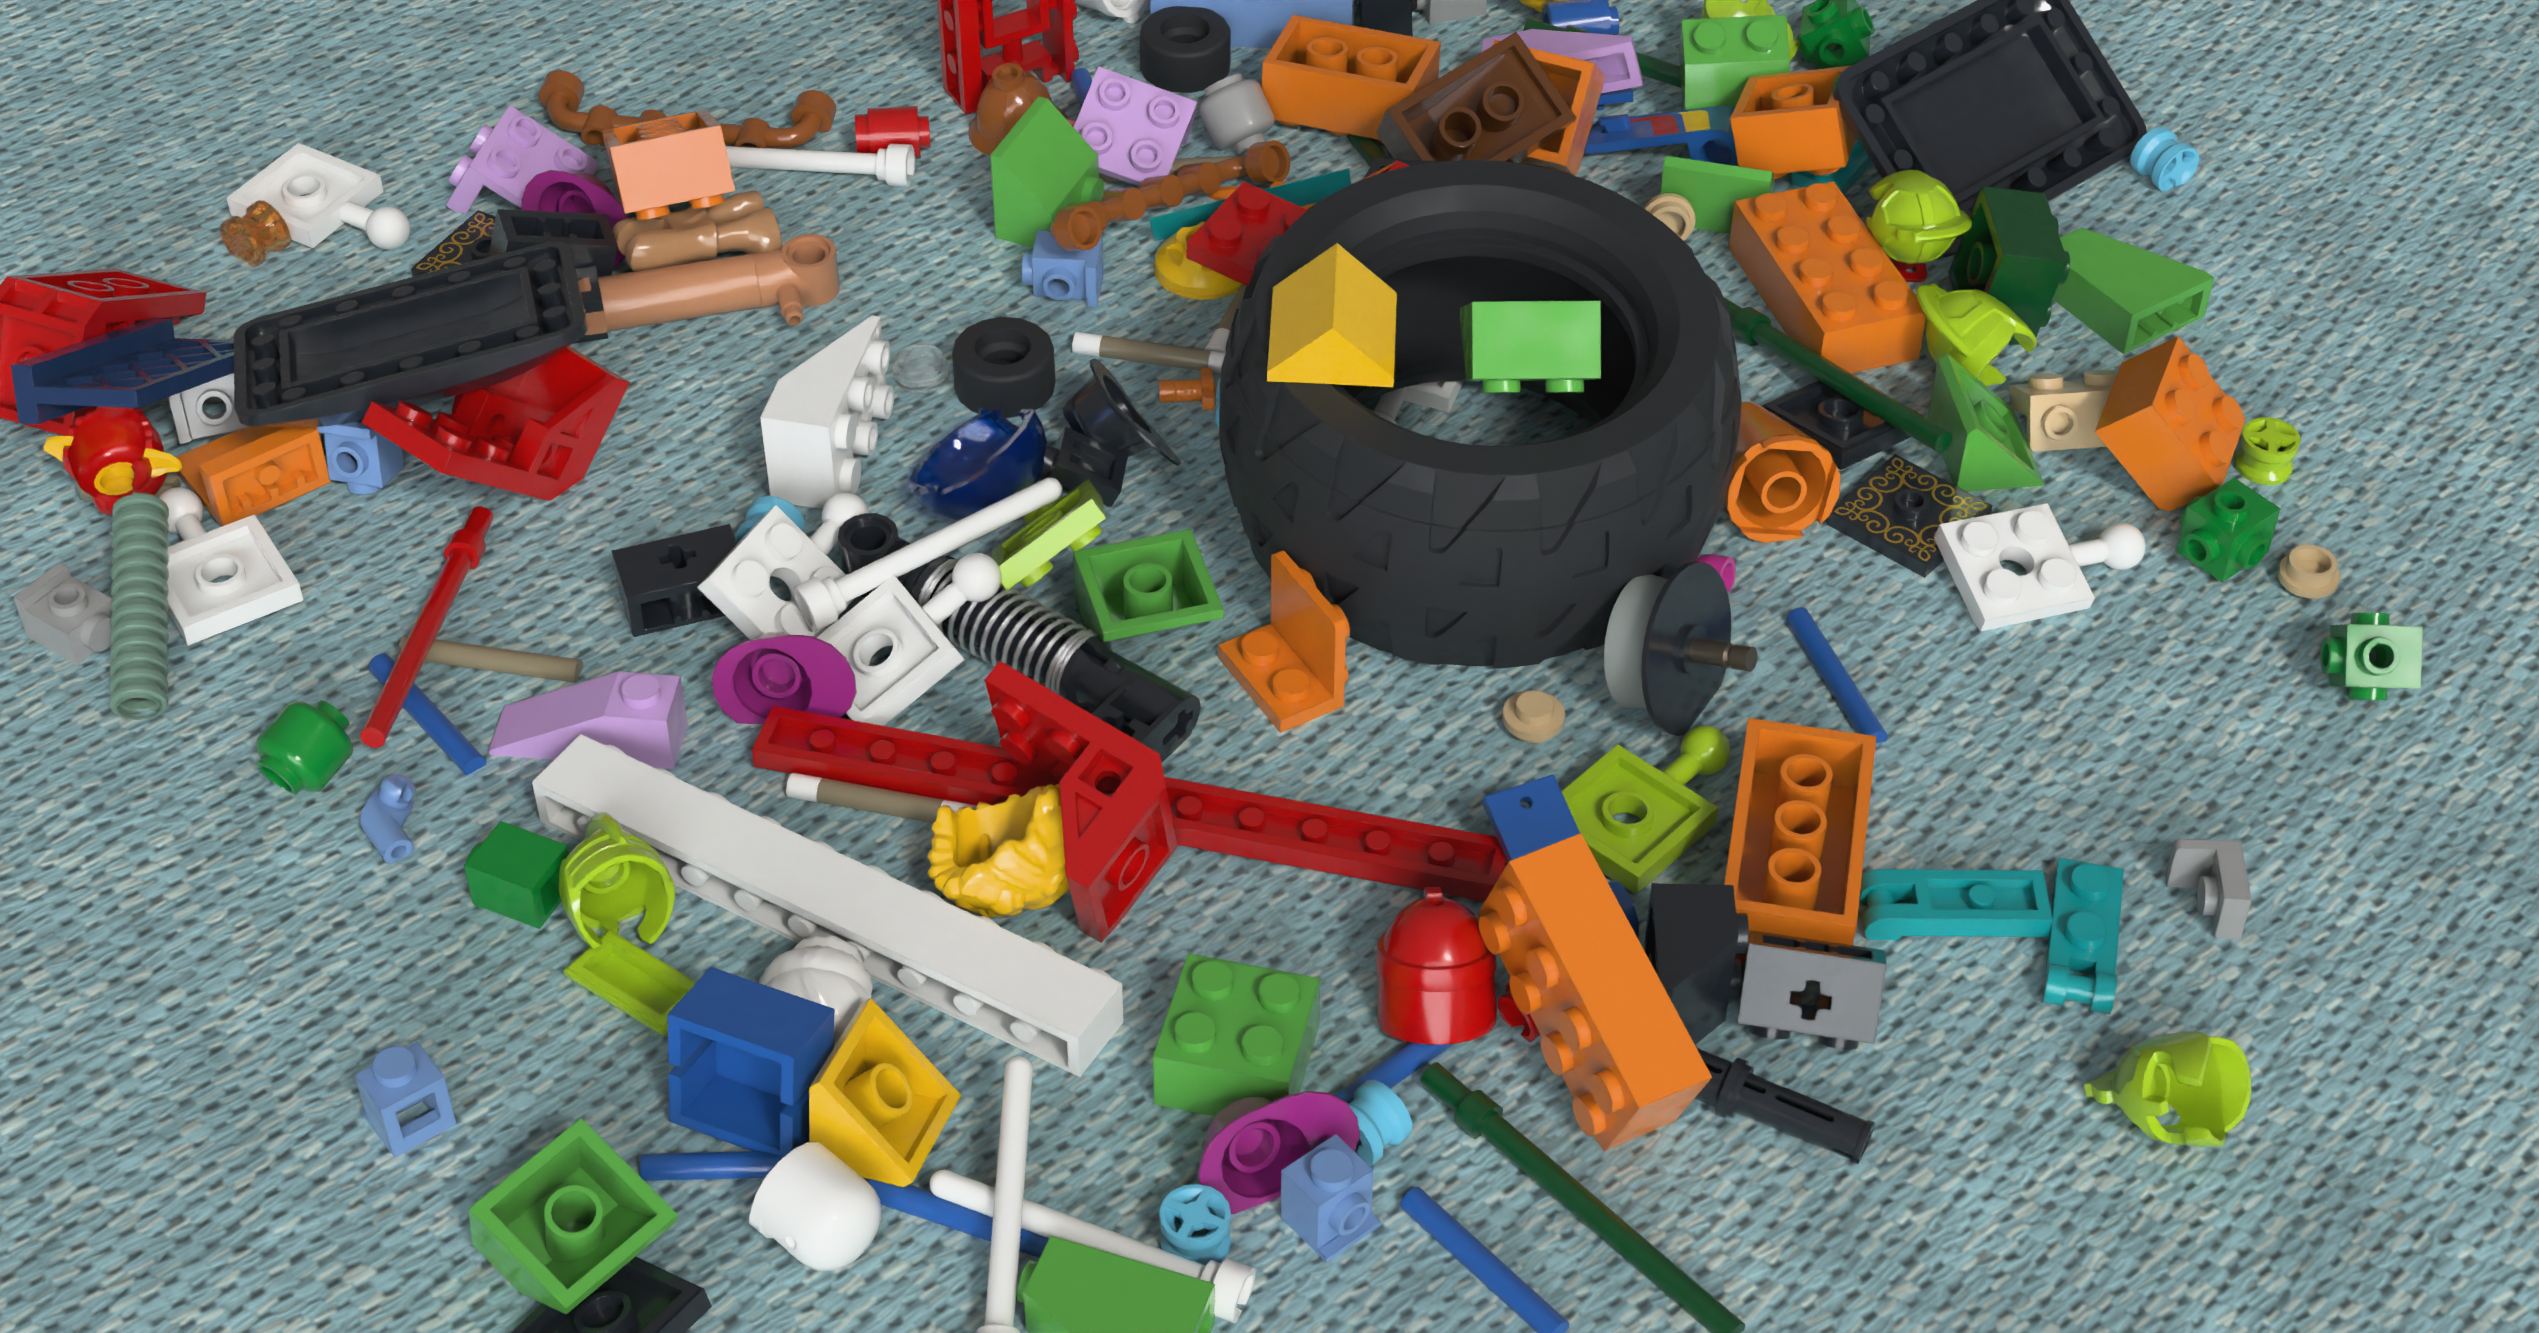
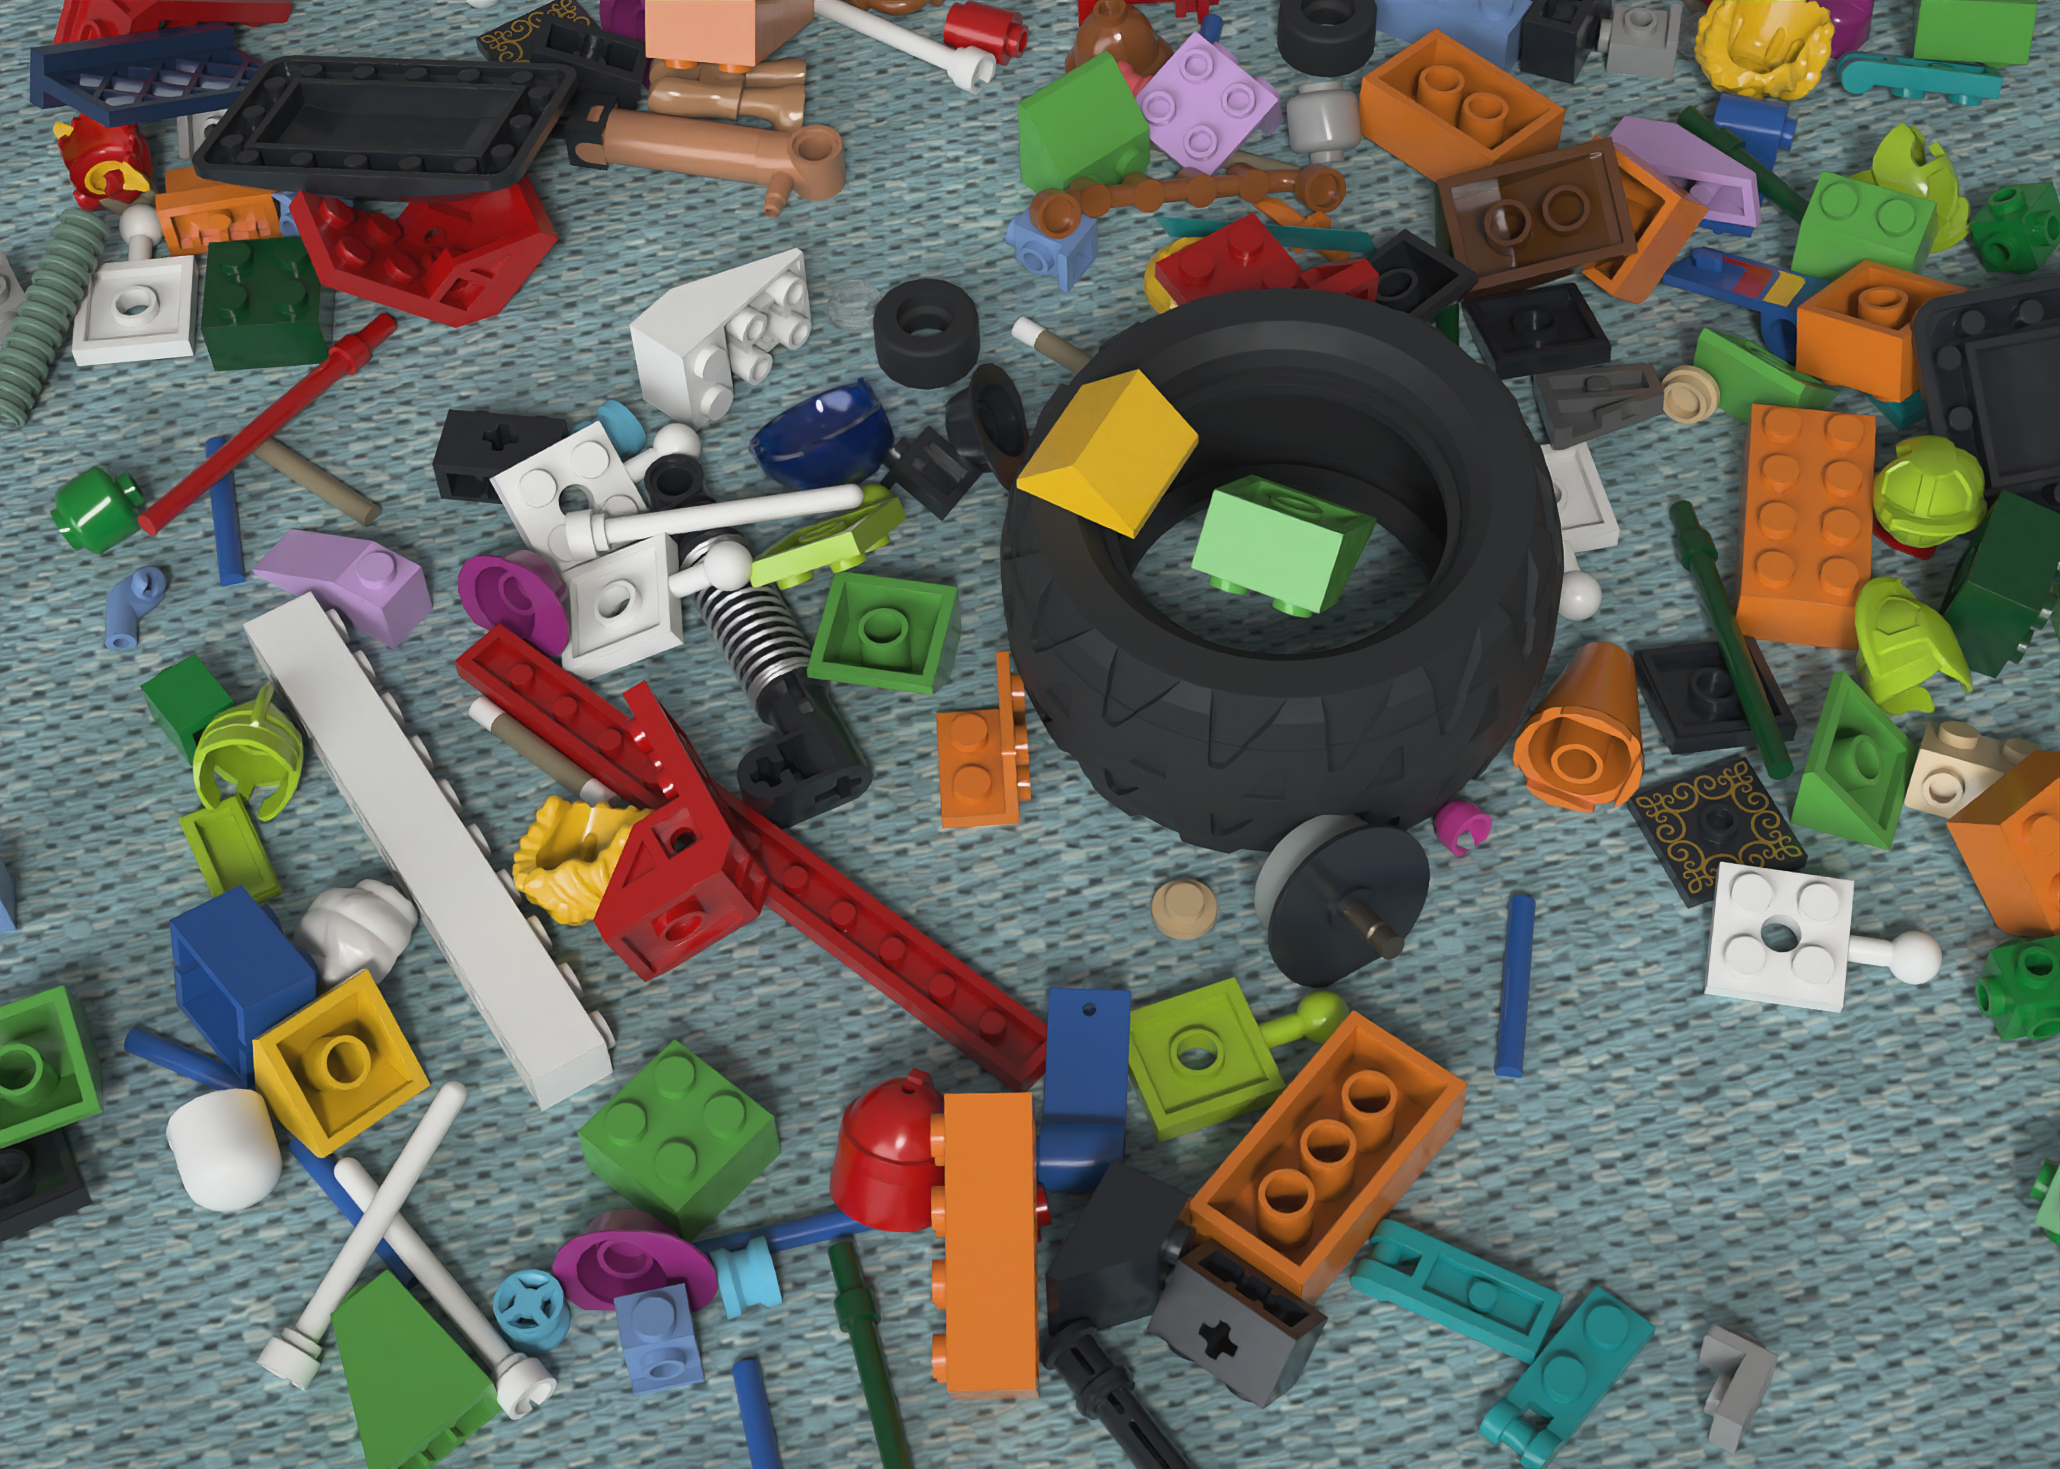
camera: 30 degrees right, 10 degrees up
(362, 528) = (265, 305): none -> dark green brick

